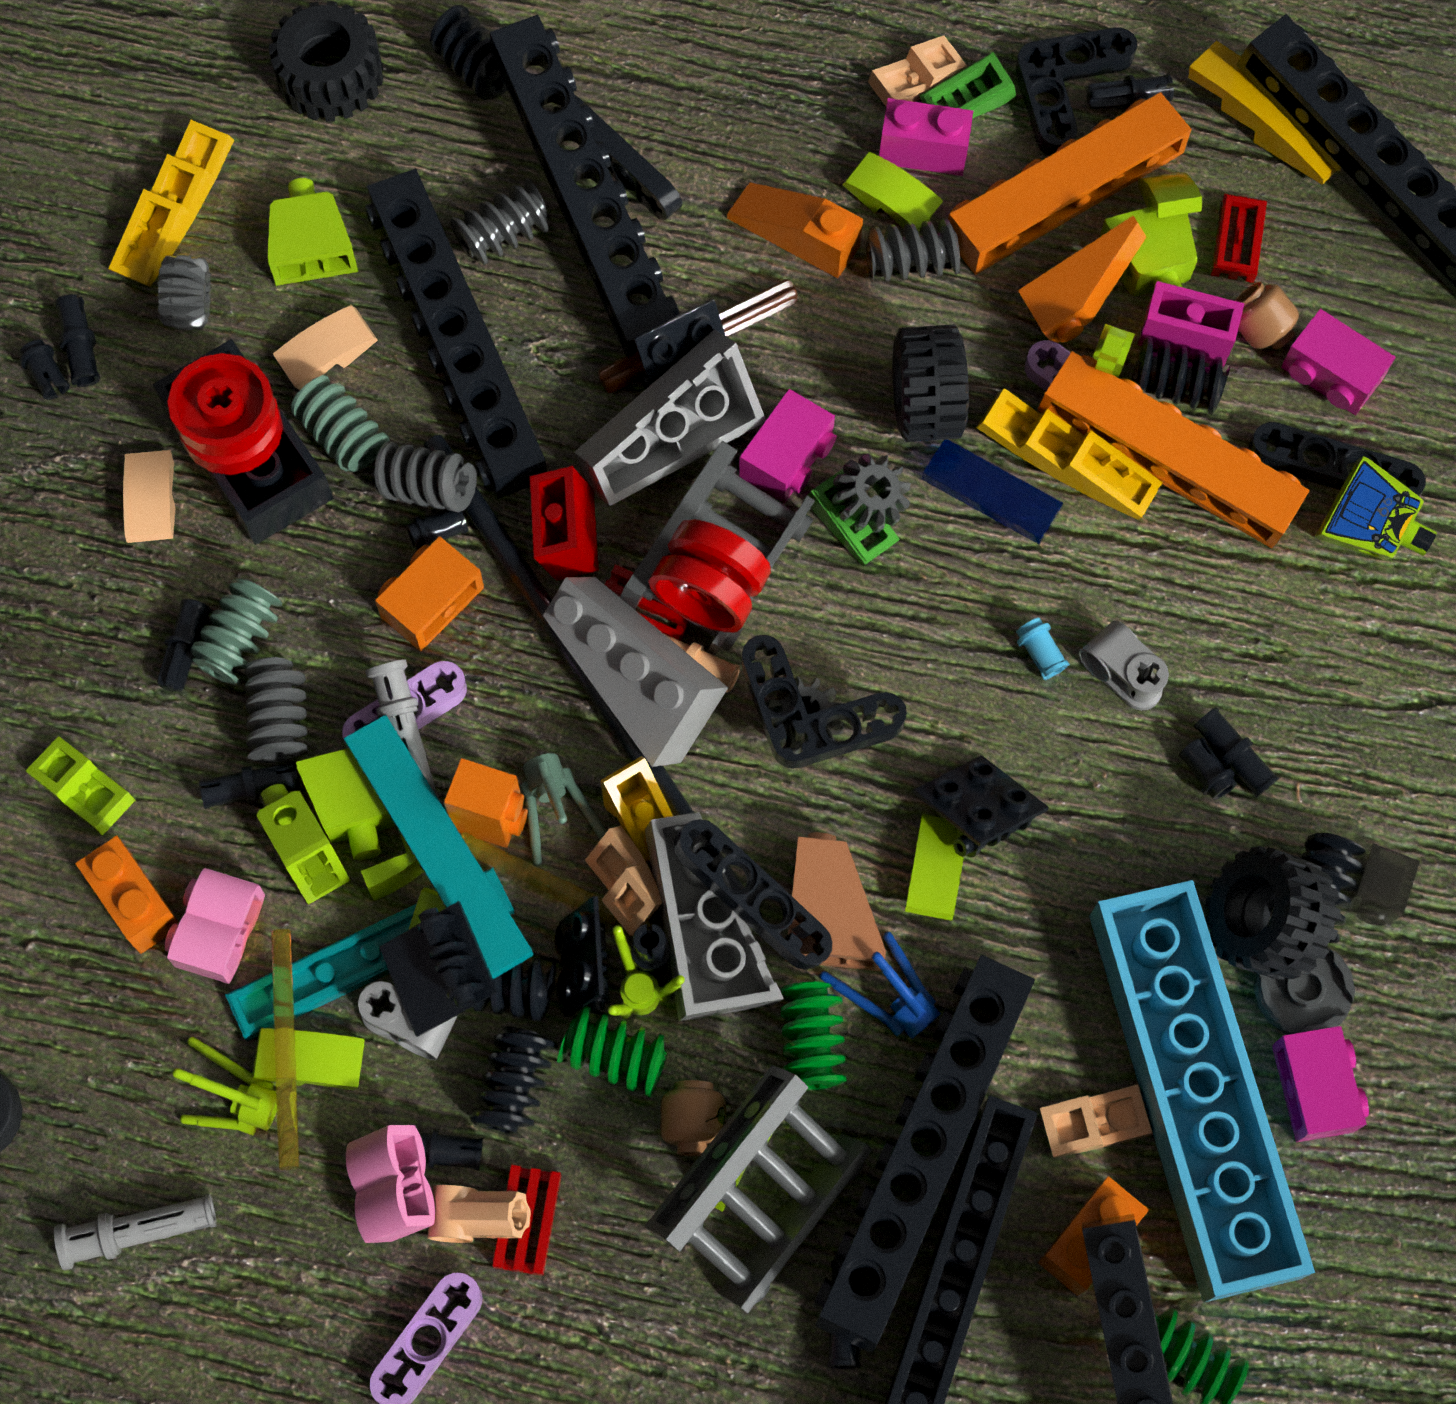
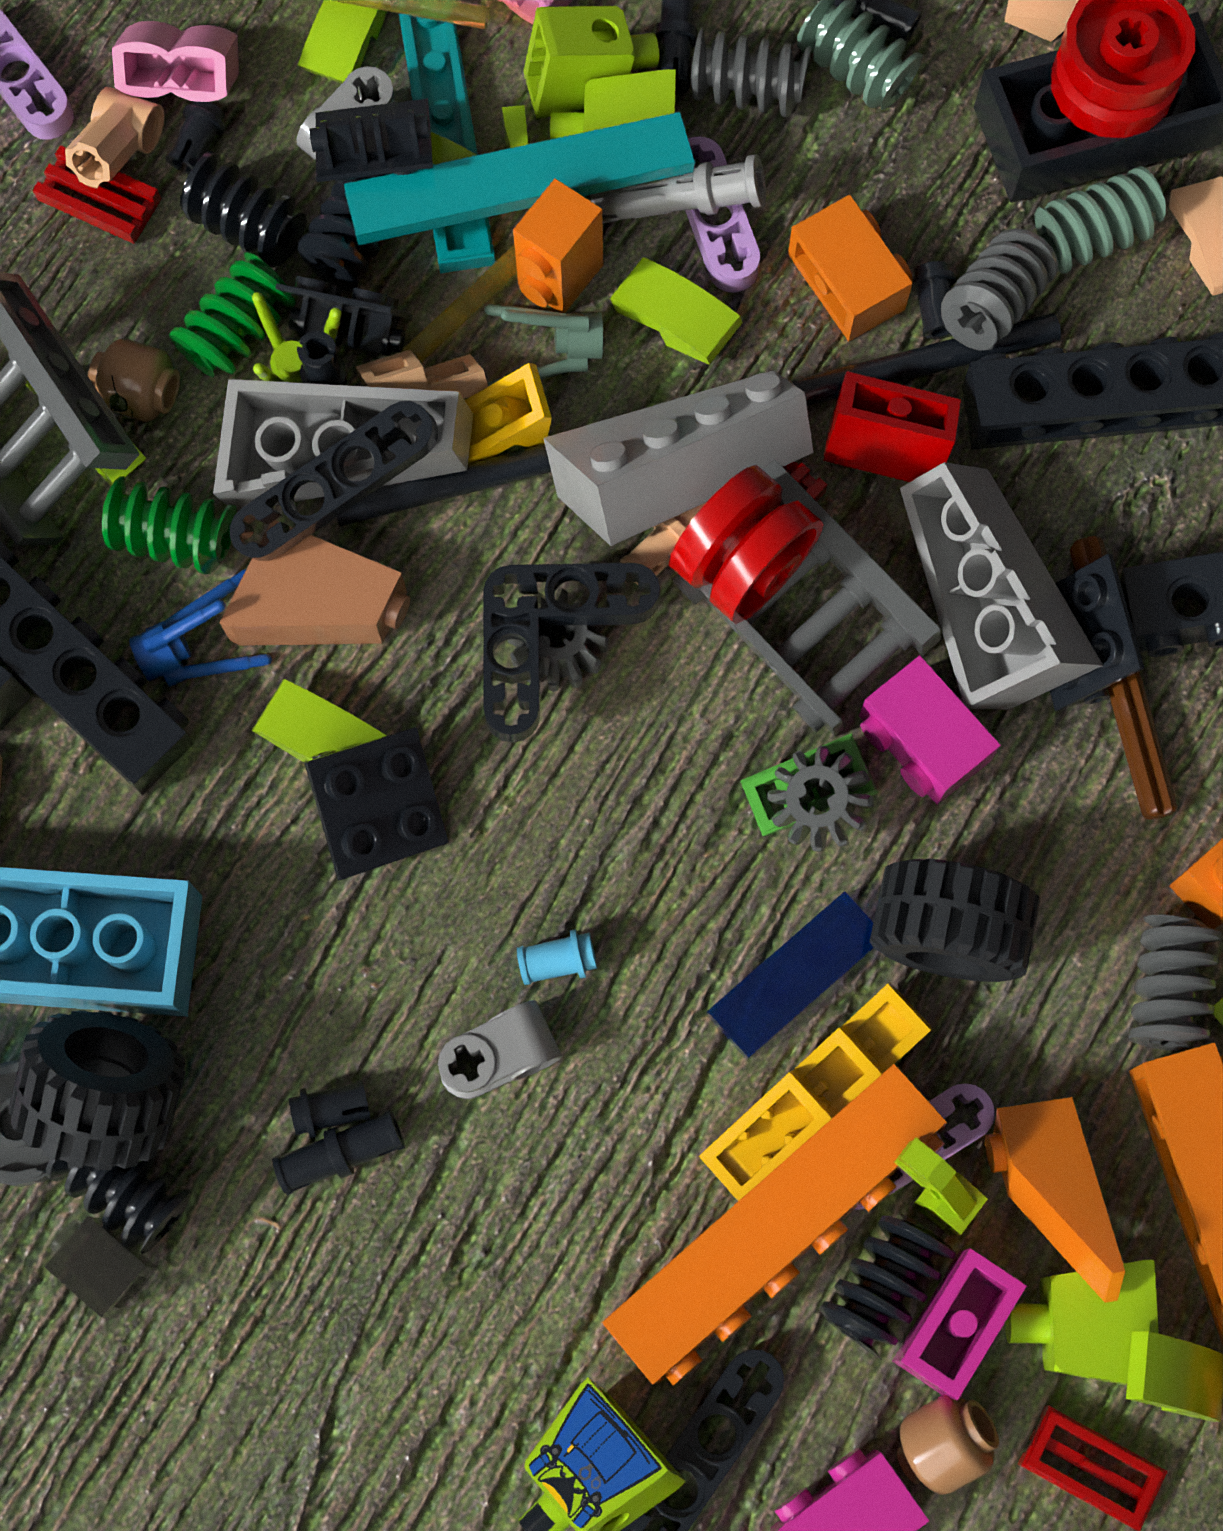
camera: 110 degrees right, 5 degrees up
(501, 713) = (678, 309): none -> lime slope

